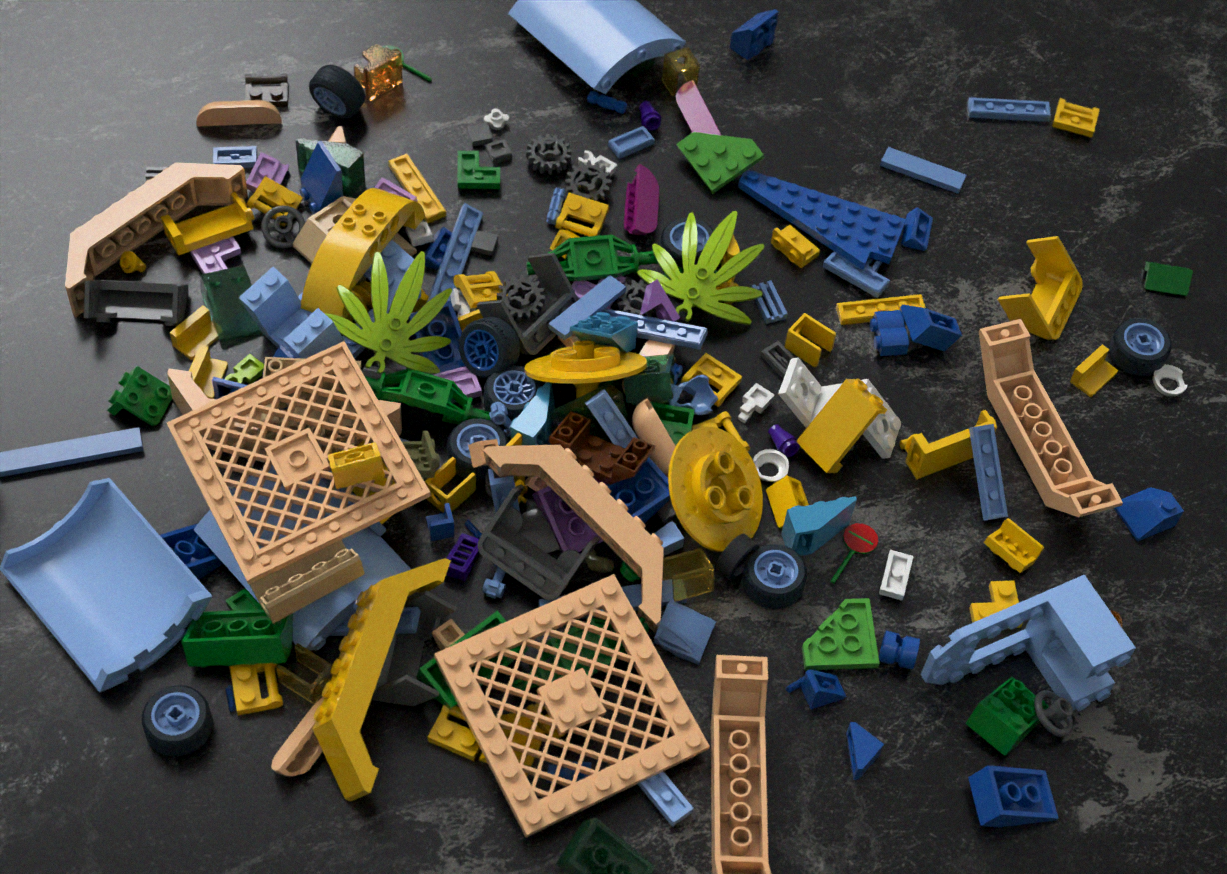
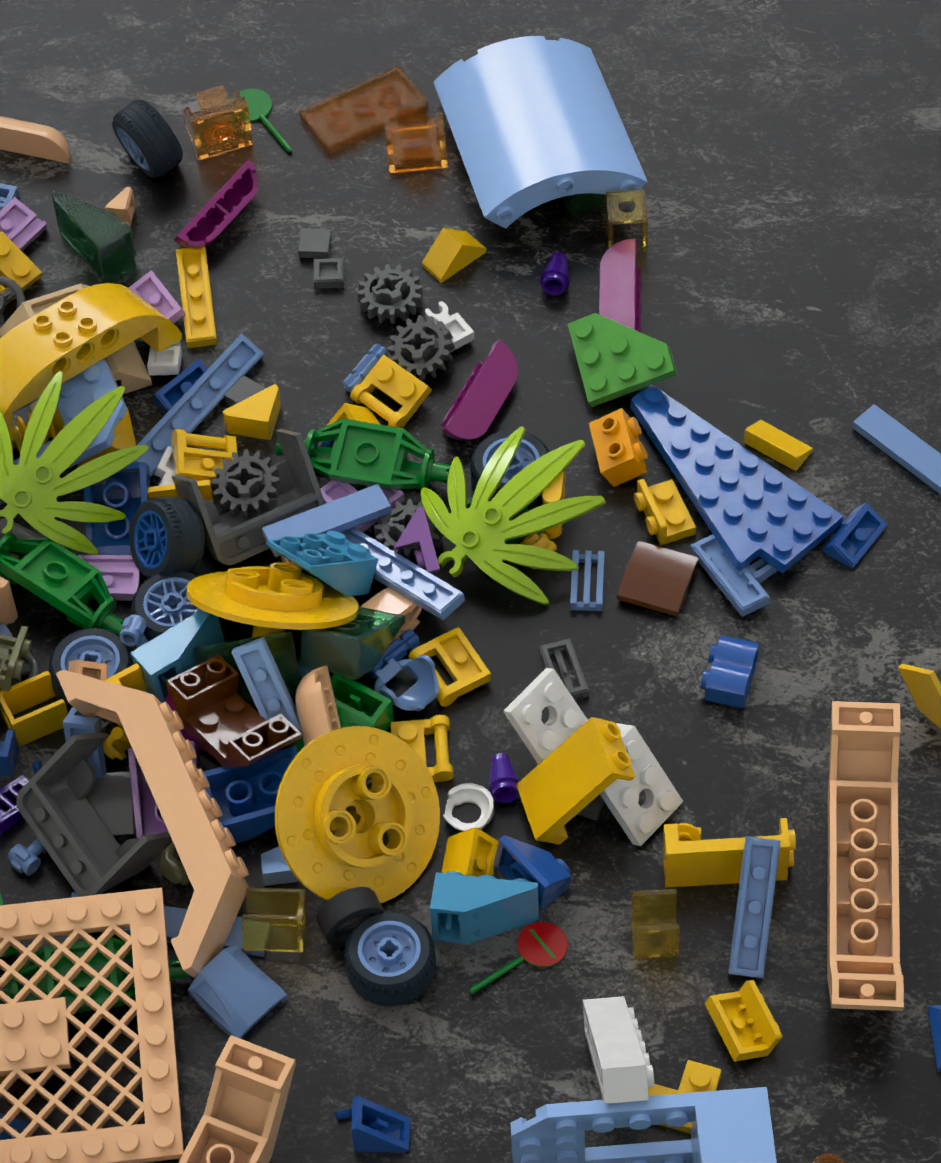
camera: 30 degrees right, 0 degrees up
(274, 94) = (70, 122): plate -> none
(321, 180) = (63, 254): blue slope -> none
(407, 126) = (220, 209): none -> magenta brick
(467, 42) = (360, 109): none -> clear orange tile
(475, 177) = (276, 298): green plate -> none
(496, 119) = (347, 227): white plate -> none
(499, 254) = (255, 415): none -> yellow slope
(513, 54) = (415, 140): none -> clear orange panel
(574, 120) = (451, 253): none -> yellow slope
(607, 102) = (510, 241): blue axle -> none
(631, 142) = (514, 305): medium blue tile -> none
(750, 214) = (618, 447): none -> light orange brick
(755, 34) = (762, 194): blue slope -> none
(755, 400) = (489, 713): white plate -> none
(813, 288) = (657, 578): none -> reddish brown slope
(814, 331) = (615, 629): yellow piece -> none
(831, 487) = (528, 862): none -> blue slope
(841, 187) = (777, 444): none -> yellow slope
(843, 639) = (442, 1073): bright green plate -> none
(864, 310) = (773, 639): yellow tile -> none
(896, 575) = (559, 1009): white plate -> none
(899, 650) = (500, 1107): blue wheel -> none
(923, 496) = (655, 924): none -> clear yellow piece
(930, 327) = (786, 680): blue slope -> none
(966, 585) = (617, 1050): none -> white brick

